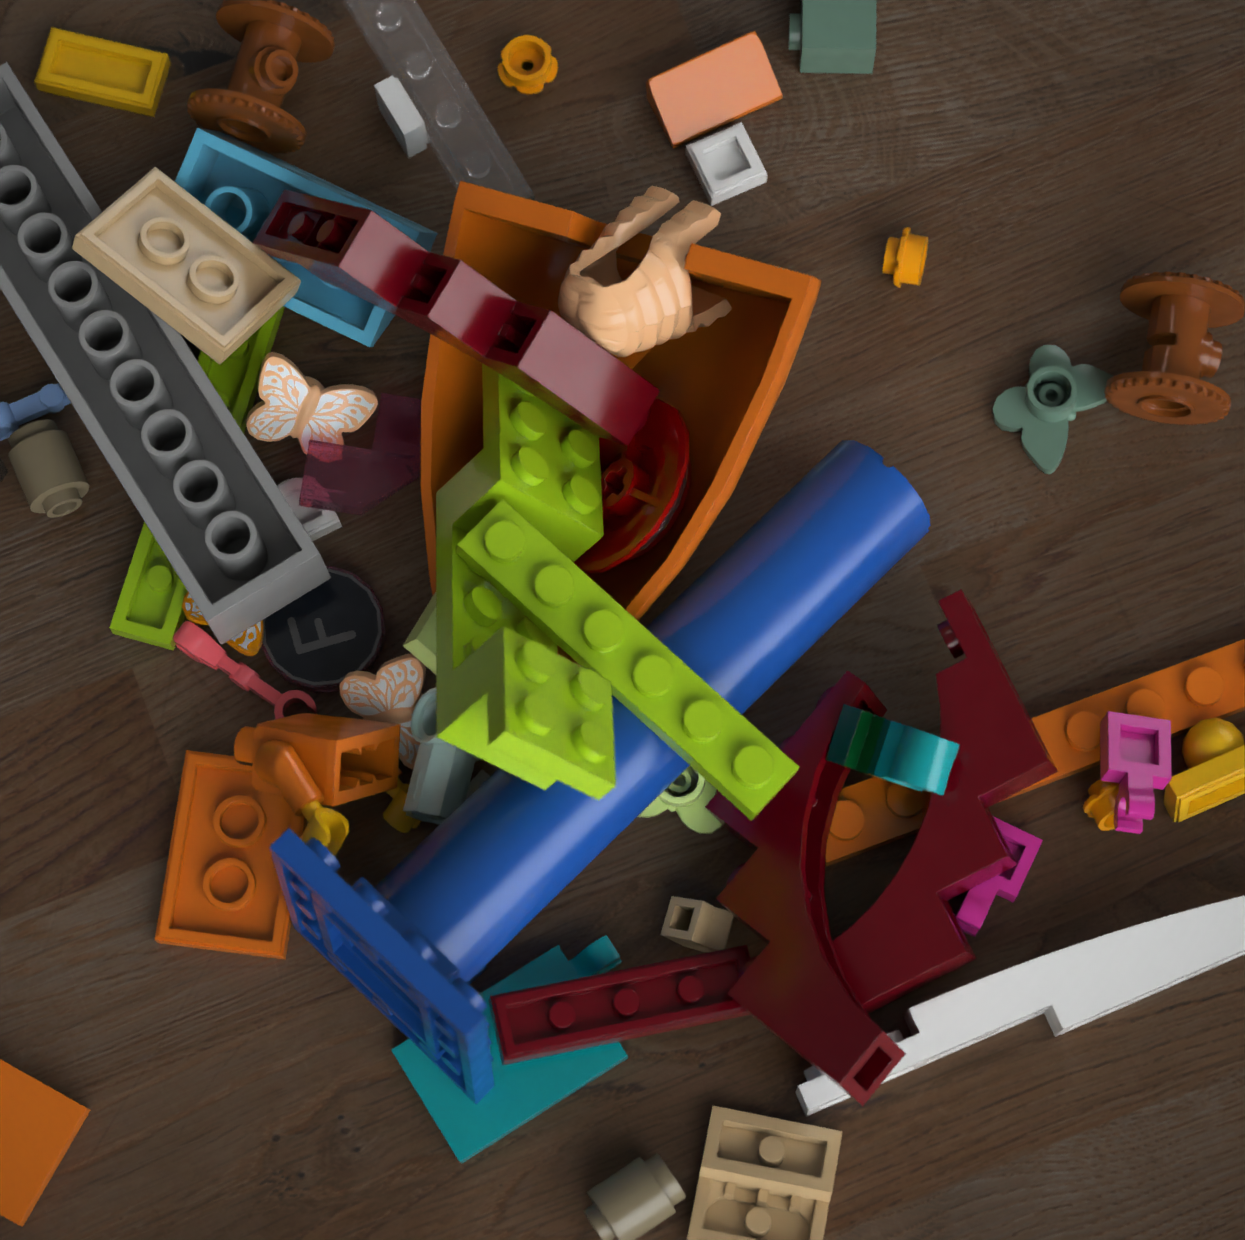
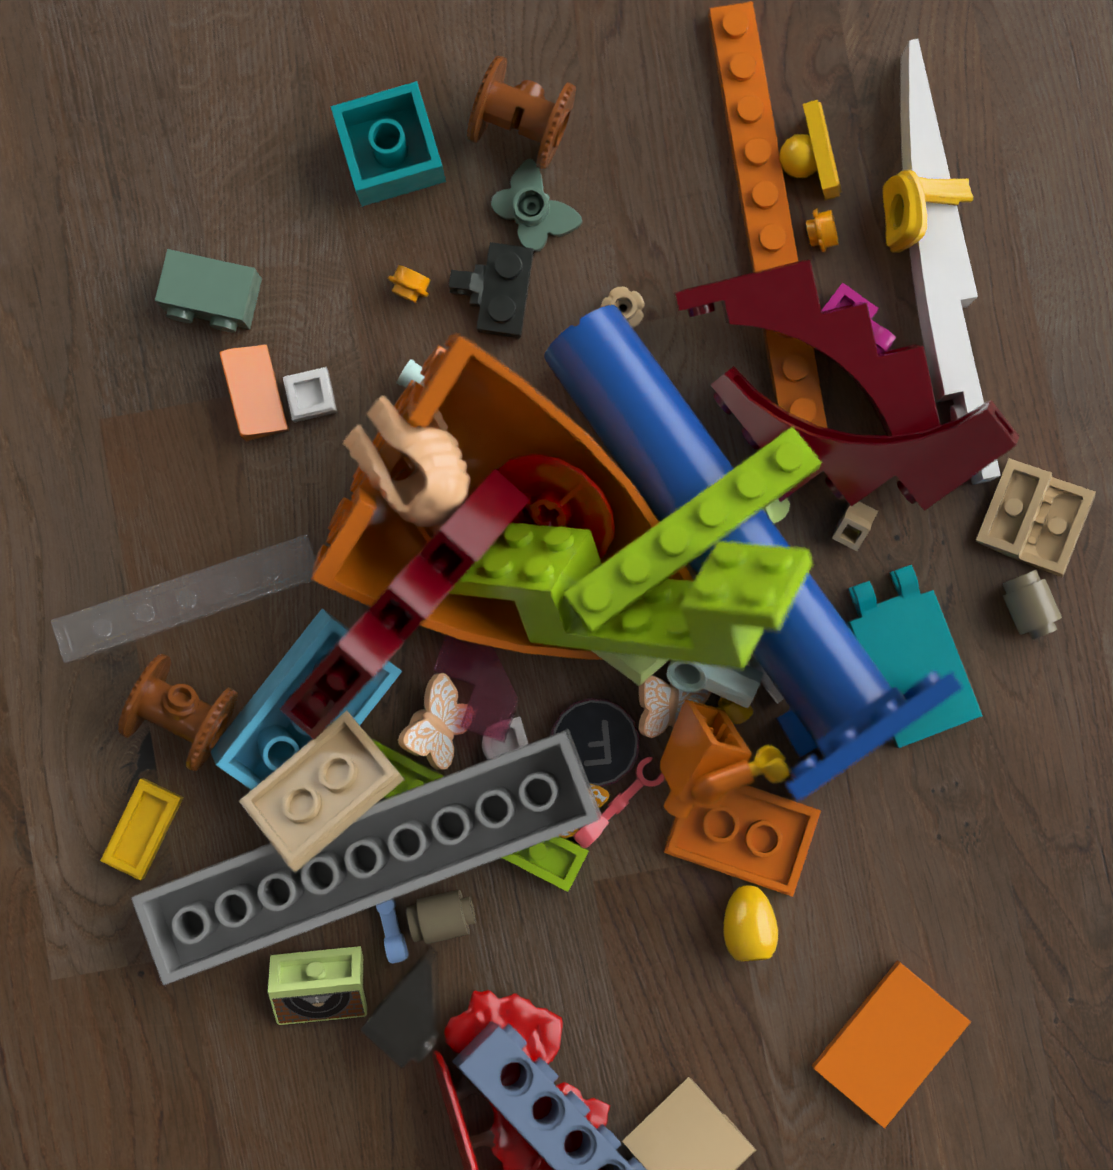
camera: 80 degrees left, 10 degrees up
(103, 884) = (750, 925): none -> yellow animal
(401, 115) = (226, 617): white tile -> none
(527, 49) = (193, 520): light orange plate -> none
(617, 1005) = (906, 586): dark red tile -> none
(891, 751) = (778, 363): leg -> none
(927, 378) = (498, 289): none -> pearl dark grey hinge
(947, 562) = (632, 300): none -> tan plate
(1089, 187) = (388, 143): none -> teal brick
(1137, 757) = (805, 204): dark pink plate -> none
(1194, 906) = (909, 225): none -> yellow piece

